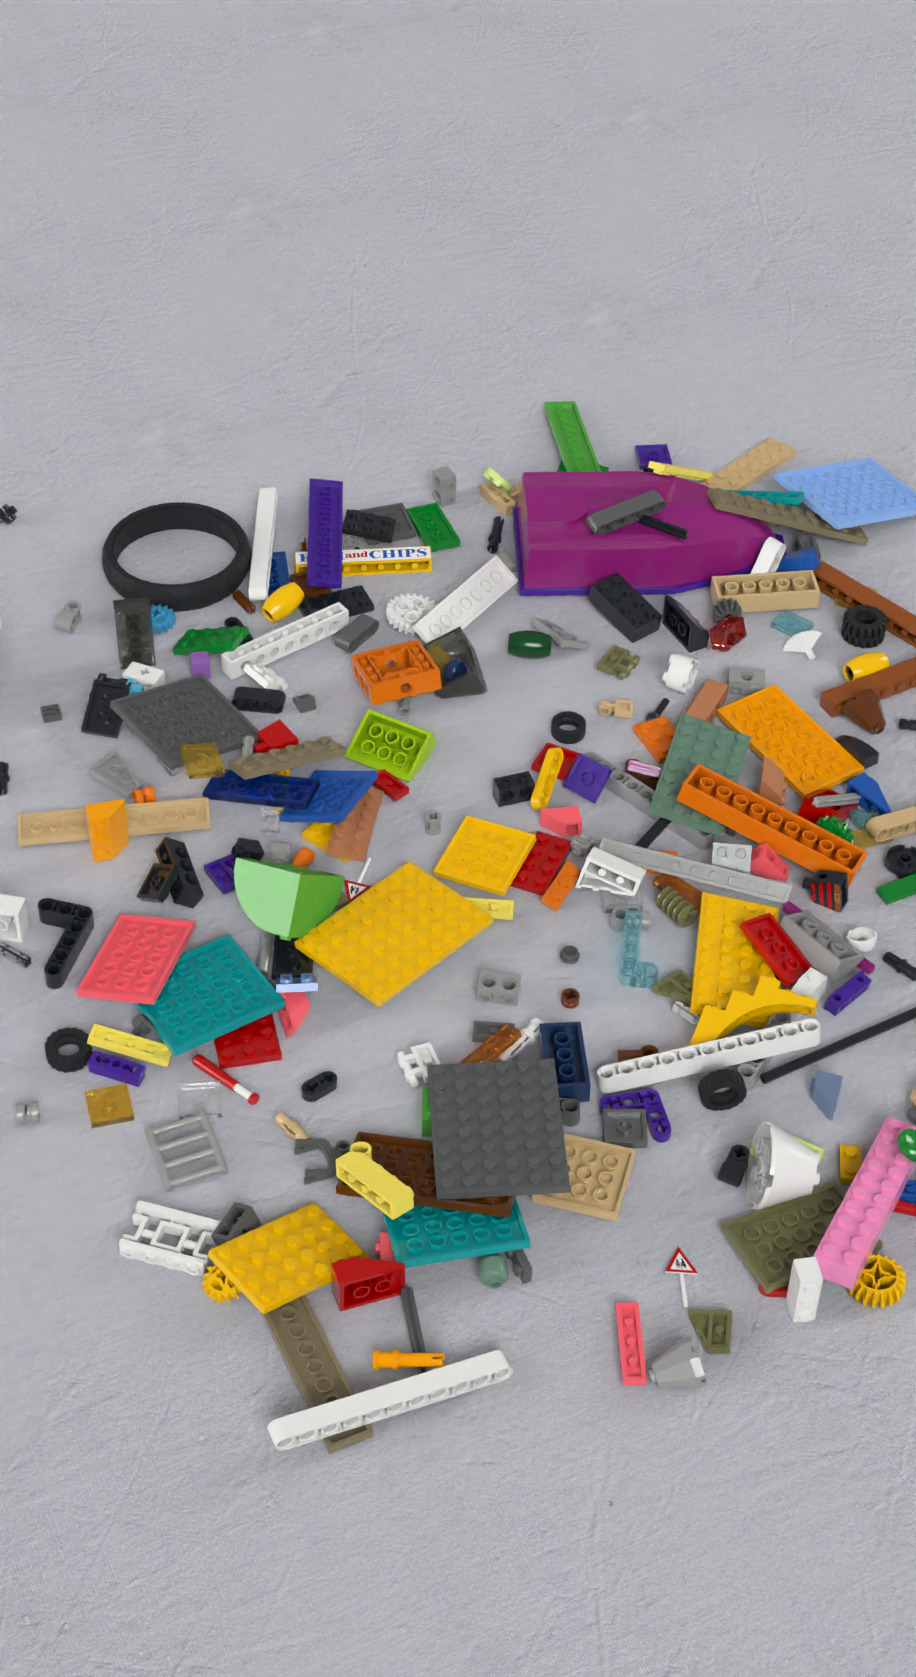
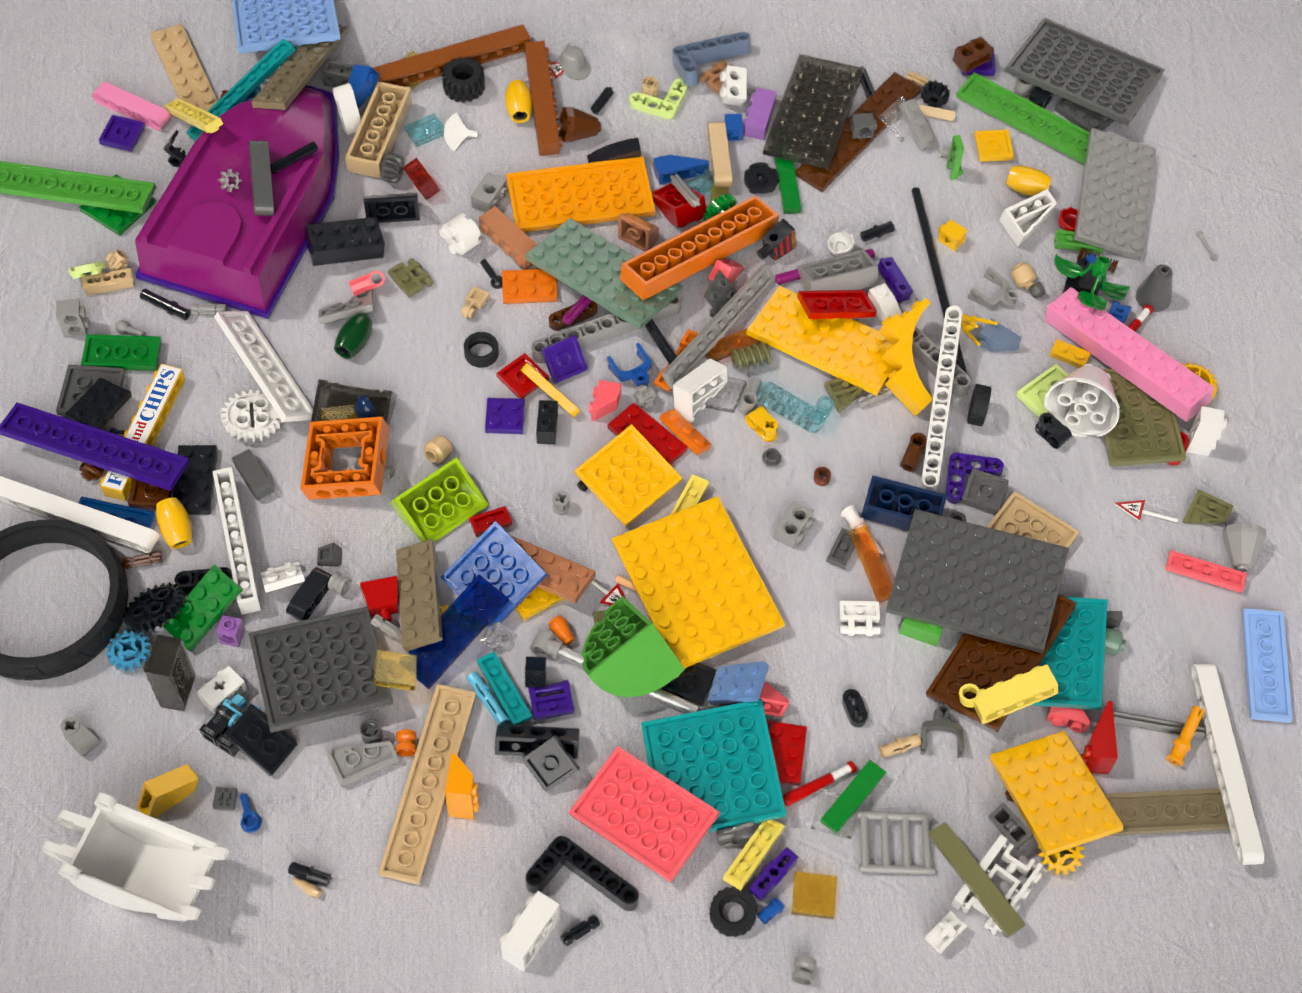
camera: 70 degrees left, 15 degrees up
(37, 731) = (250, 821): none -> blue plate
(40, 675) = (166, 790): none -> yellow slope
(84, 1078) = (770, 910): none -> blue pin
(102, 1205) = (945, 932): none -> white hips
(144, 772) = (370, 727): none -> dark grey wheel
(161, 1210) = (976, 879): none -> olive tile
(197, 615) = (154, 607): none -> black gear
(214, 830) = (483, 692): none -> medium azure pin
(219, 1103) = (853, 796): none -> green tile
(224, 841) = (504, 689): none -> teal plate
(277, 711) = (339, 583): none -> light grey wheel
(444, 730) = (438, 449): none -> tan head
(459, 522) = (124, 327): none -> light grey bar
(507, 762) = (504, 415): none -> dark purple plate
(538, 1424) = (1266, 665): none -> light blue plate
(593, 637) = (365, 283): none -> coral piece
(601, 830) = (637, 375): none -> blue piece
(603, 937) = (762, 424): none -> yellow piece
(610, 498) = (234, 181): none -> light grey gear
(685, 446) = (131, 106): none -> bright pink beam
(828, 1063) = (969, 323): none -> yellow plant
(887, 1086) = (1004, 298): none -> light grey piece

